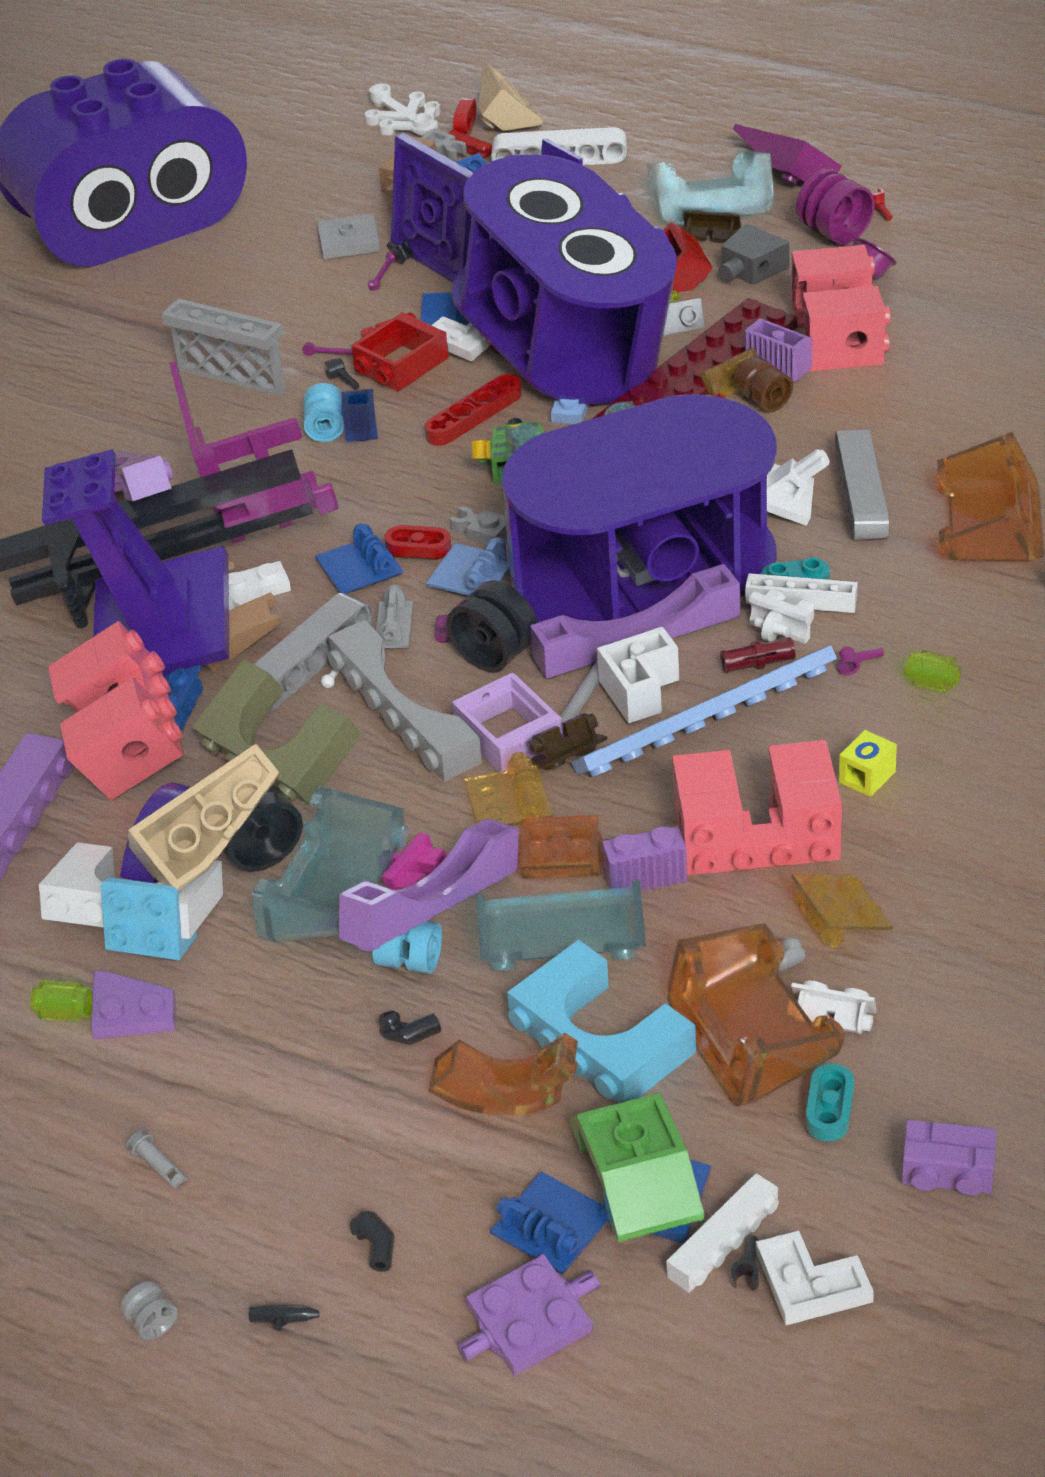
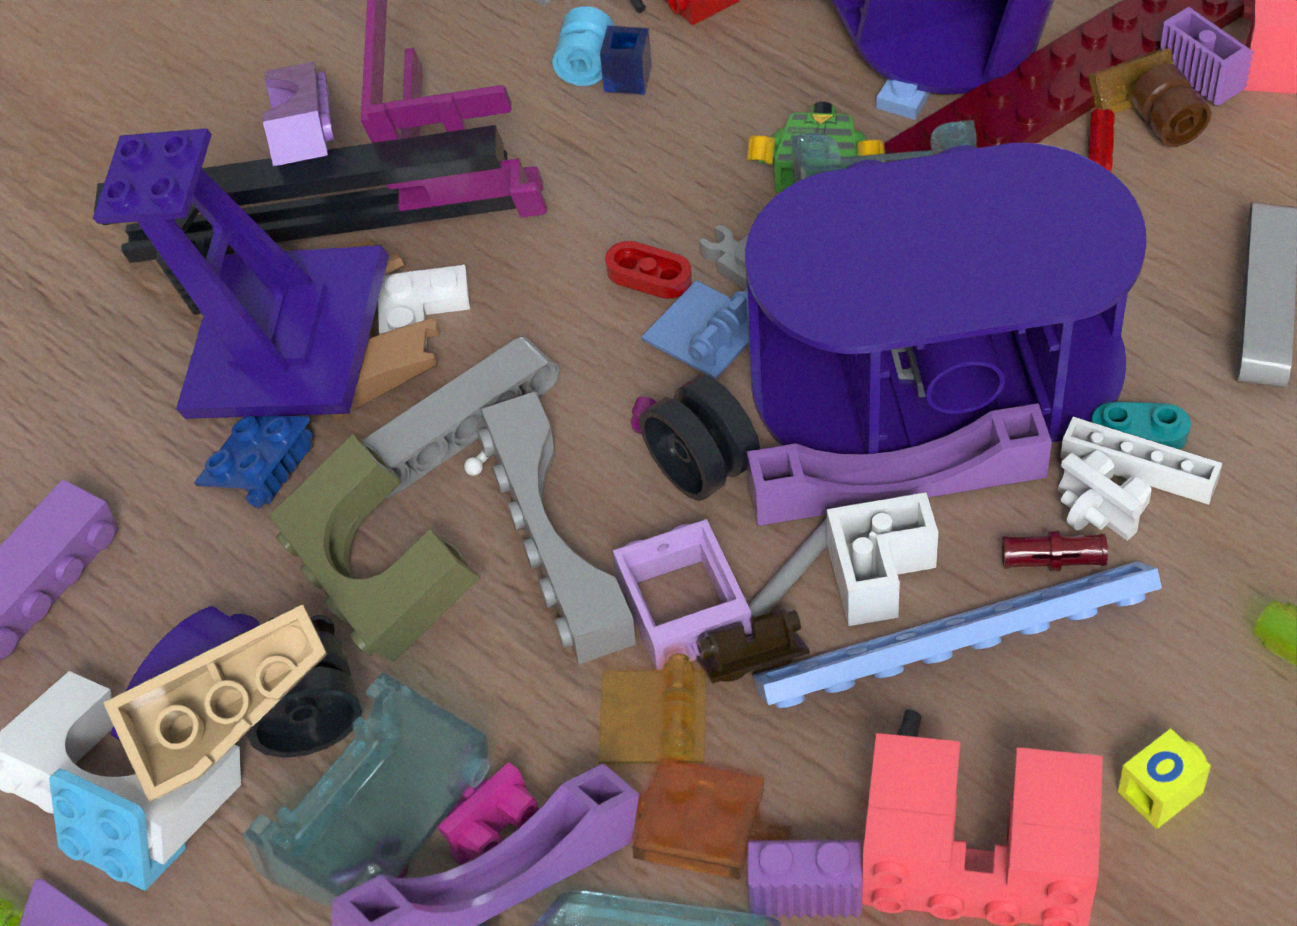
camera: 15 degrees right, 10 degrees up
(122, 710) = (193, 485): coral piece -> none
(359, 562) = (565, 286): blue hinge -> none
(395, 618) = (583, 389): light grey hinge -> none
(449, 426) = (736, 93): red beam -> none
(792, 486) = (1170, 285): white piece -> none
(850, 659) = (1181, 586): magenta hand -> none

